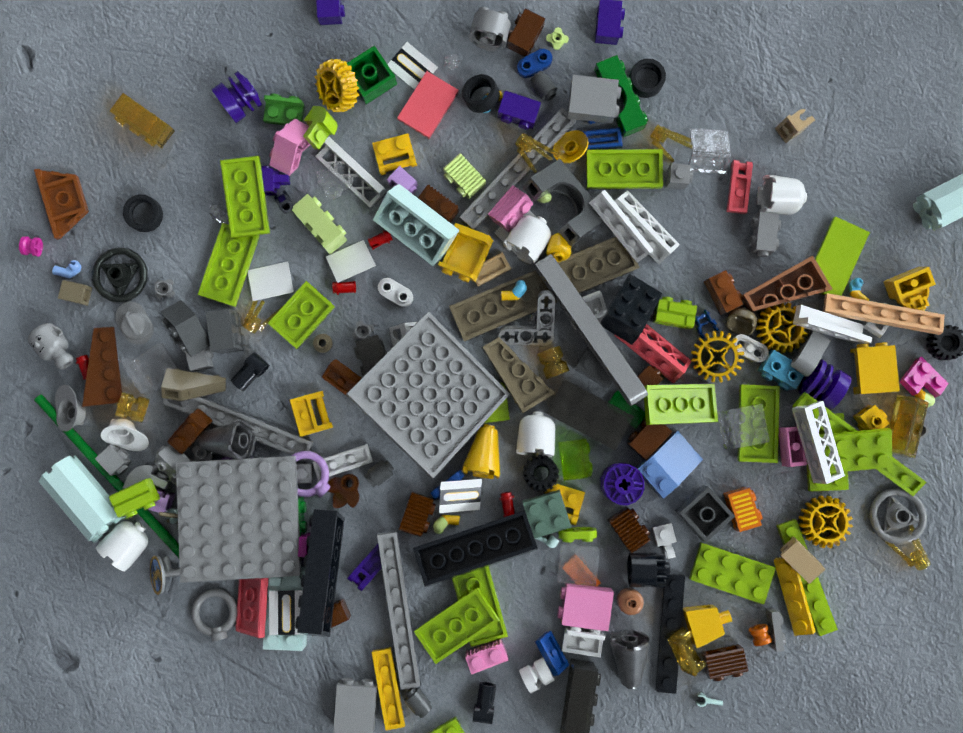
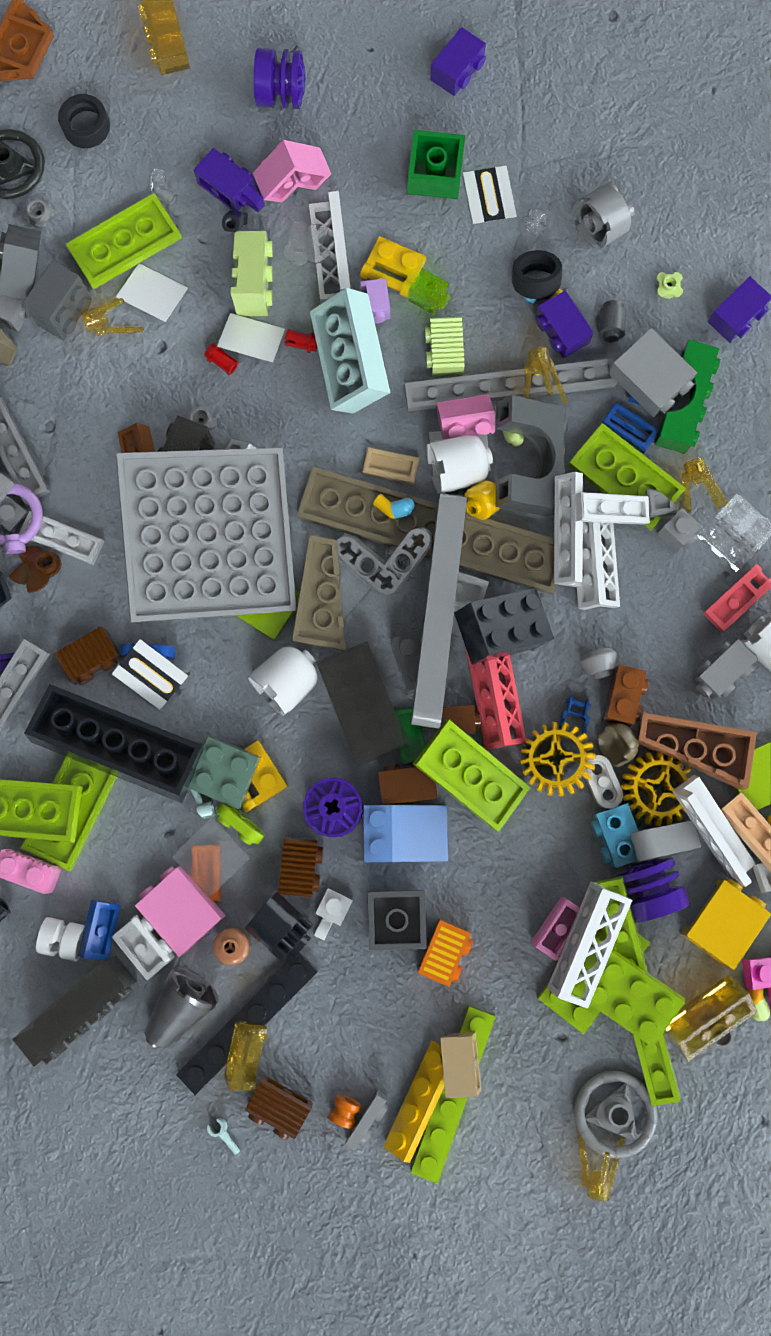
camera: 45 degrees right, 5 degrees down
(245, 196) = (198, 182): lime tile -> none
(253, 367) = (55, 364): black piece -> none
(282, 110) = (317, 130): bright green bracket -> none
(301, 315) = (152, 351): lime plate -> none
(304, 414) = (63, 455): yellow plate -> none
(320, 125) = (336, 174): lime brick -> none
(327, 347) = (152, 404): dark tan plate -> none
(336, 85) = (391, 145): yellow gear -> none
(379, 473) = (87, 579): dark grey brick -> none
(395, 292) = (269, 407): white plate -> none
(428, 104) = (472, 245): coral tile -> none
(429, 153) = (429, 292): none -> clear neon green brick
(439, 203) = (394, 352): reddish brown brick -> none
(443, 521) = (110, 688): arm -> none
(466, 254) = (378, 427): yellow panel -> none
(484, 454) = (212, 651): yellow cone -> none
(507, 503) = (194, 726): red pin -> none
(525, 32) = (639, 251): reddish brown brick -> none
(533, 465) = (254, 709): black tyre -> none
(535, 63) = (623, 291): blue plate -> none
(553, 362) = (372, 616): clear yellow wheel -> none
(571, 146) = (588, 406): yellow dish -> none
(575, 459) = (307, 741): clear neon green bracket -> none
(635, 195) = (612, 508): none -> white tile
(656, 170) = (659, 504): none -> light grey tile
(657, 68) = (742, 384): black tyre -> none
(675, 314) = (551, 674): lime brick -> none
(695, 285) = (599, 663): none -> light grey cone
(705, 623) = (294, 1044): yellow torso -> none
(732, 573) = (373, 1016): lime plate -> none
(743, 426) = (523, 861): clear bracket -> none
(769, 398) = (543, 873): lime plate -> none
(813, 531) = (540, 1047): yellow gear -> none
(871, 418) = (681, 968): yellow brick -> none

